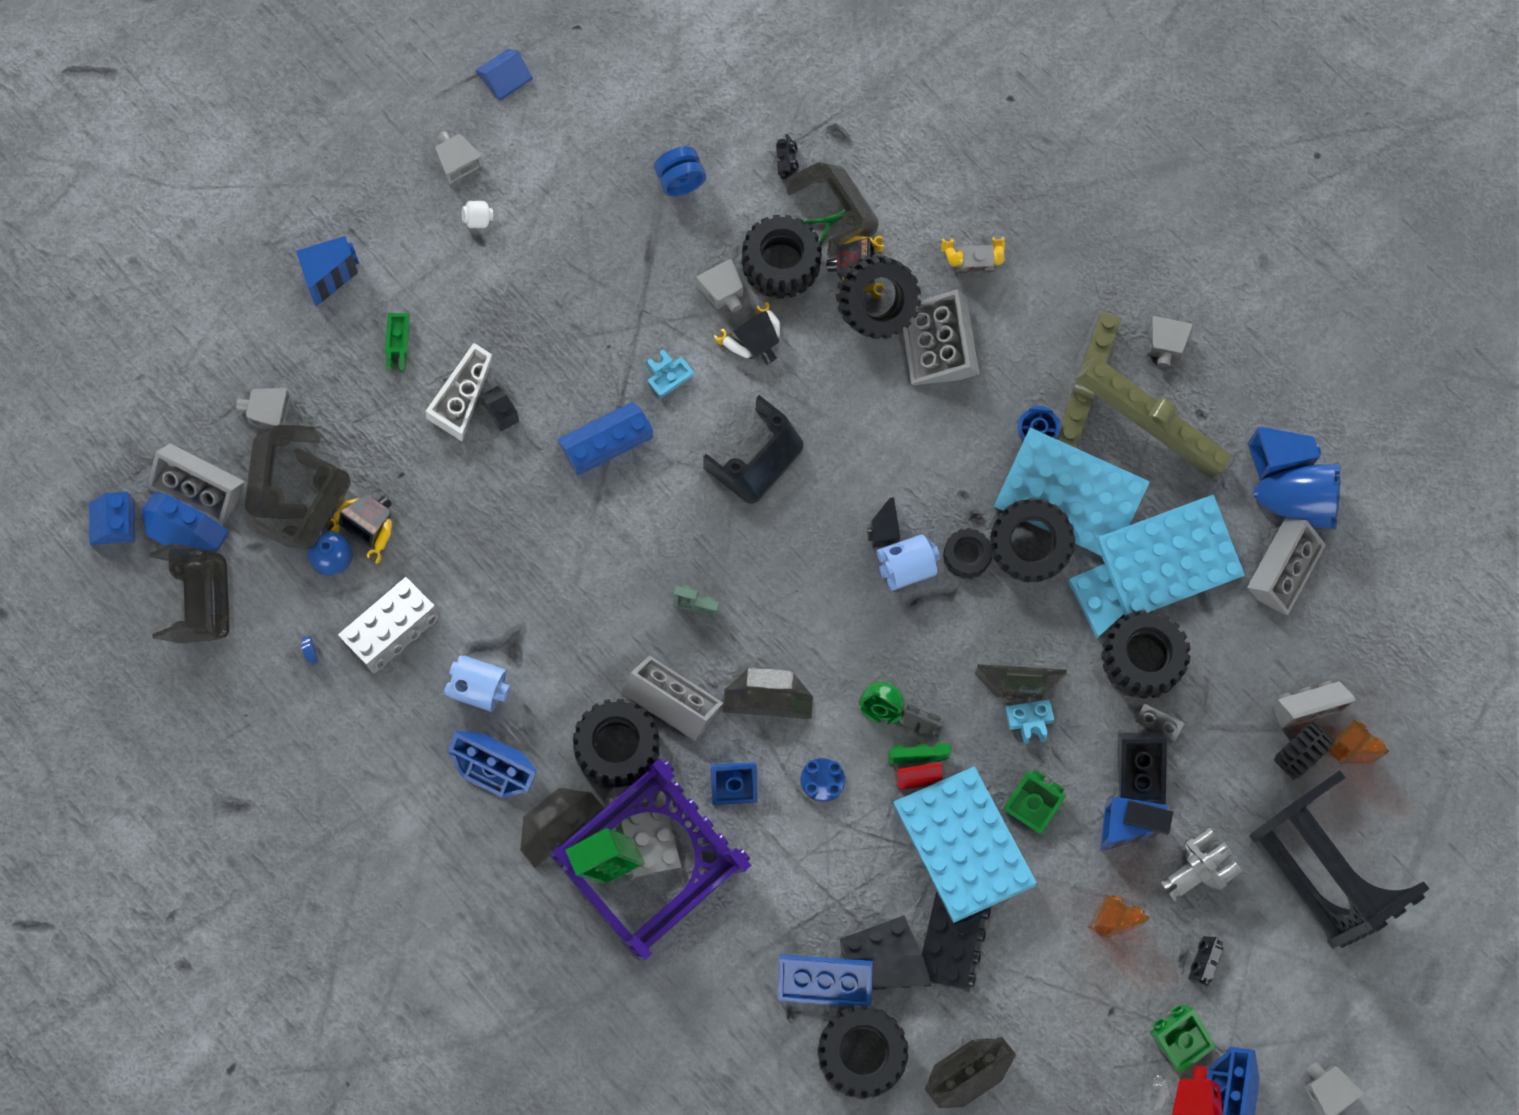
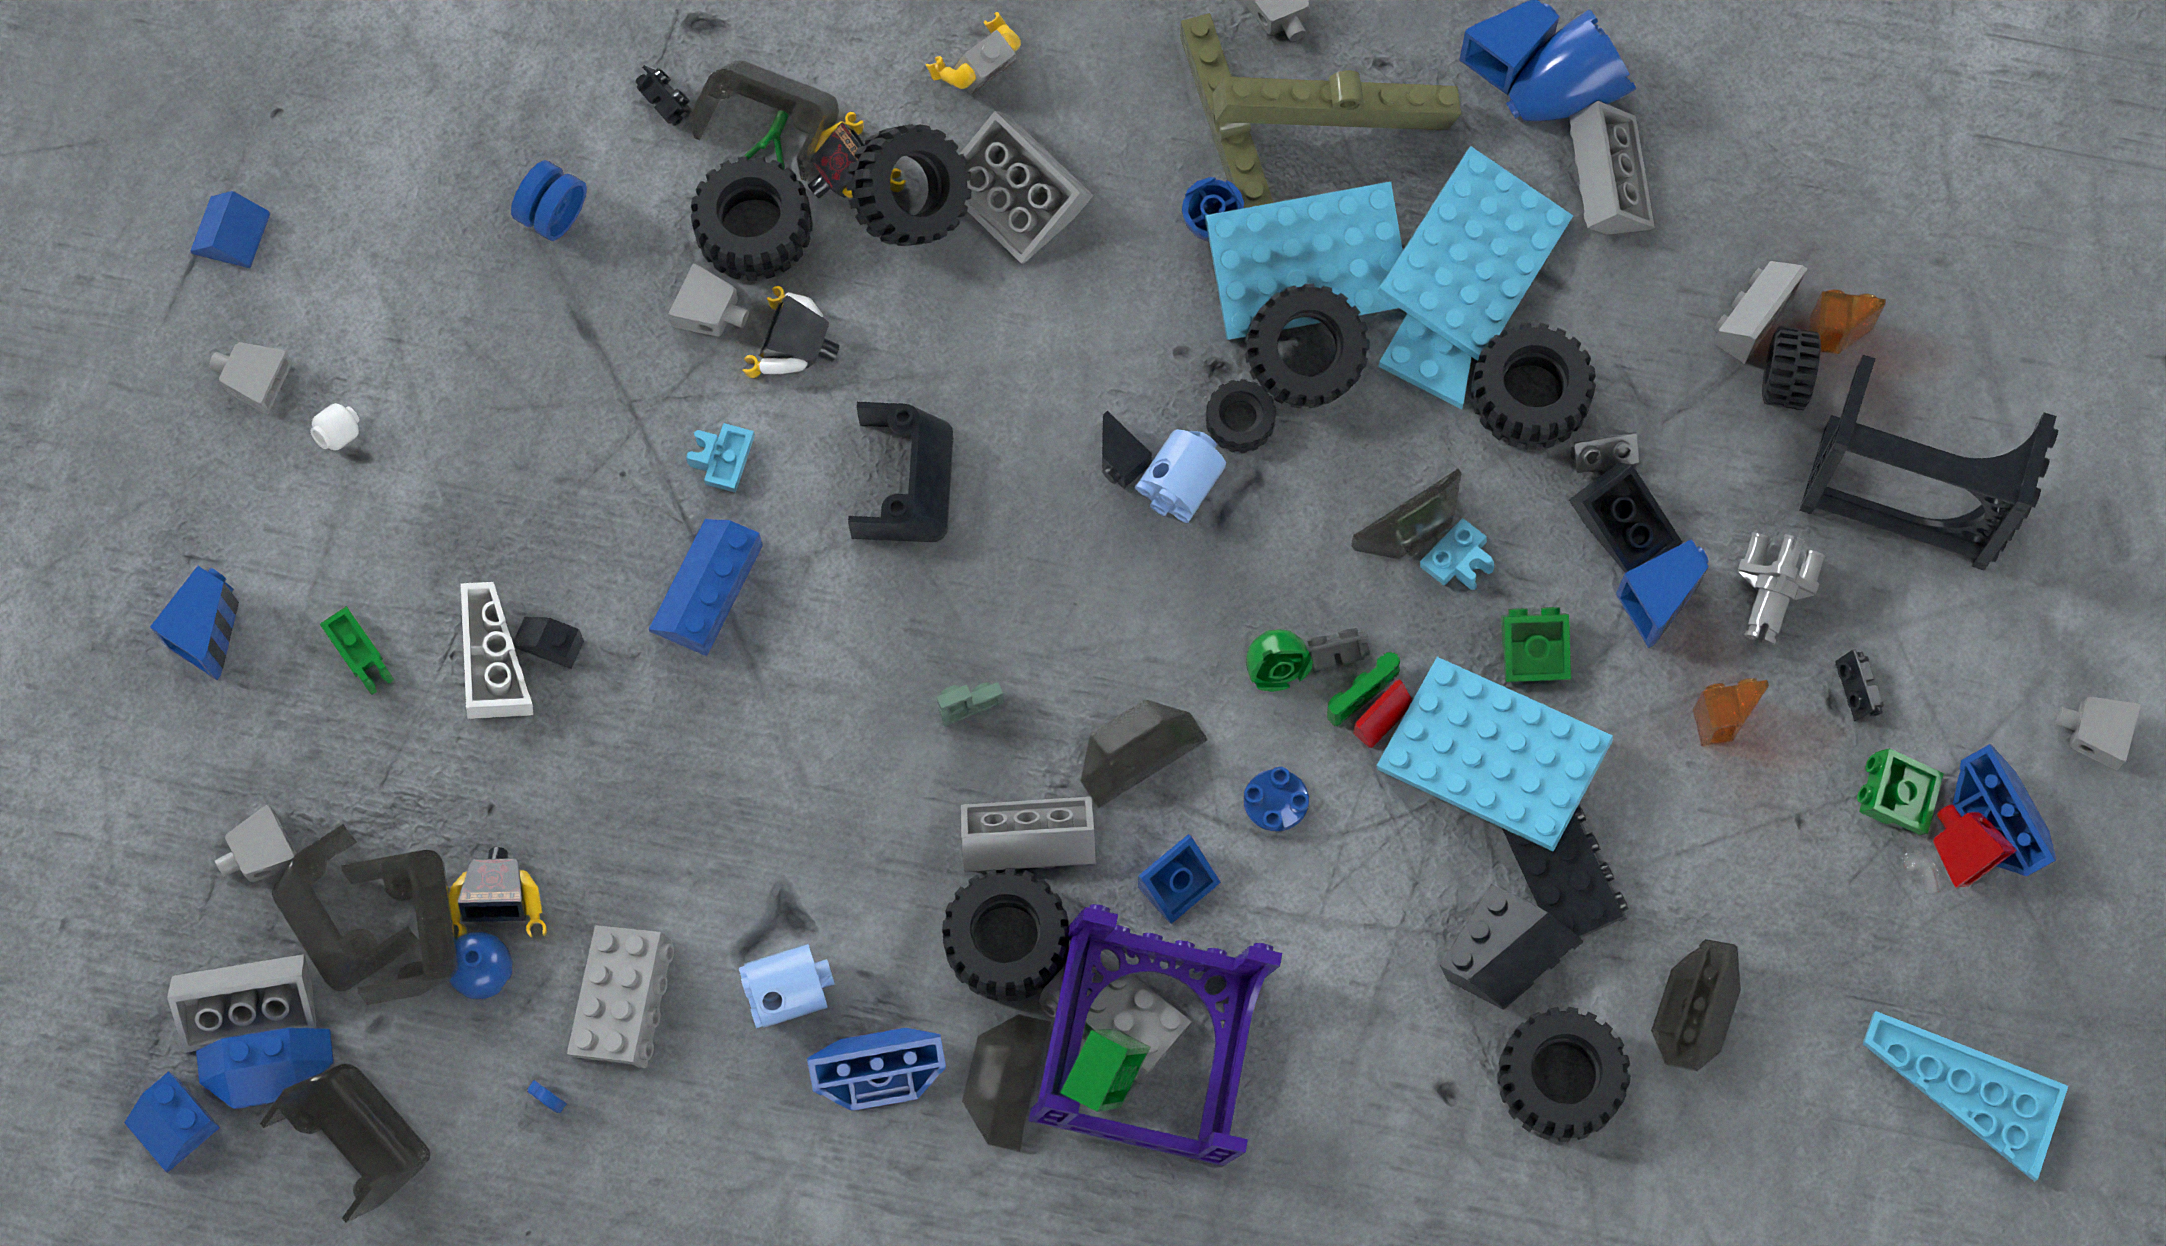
camera: 30 degrees left, 0 degrees up
(825, 980) = (1459, 1025): tile -> none
(1148, 817) = (1681, 568): black tile -> none

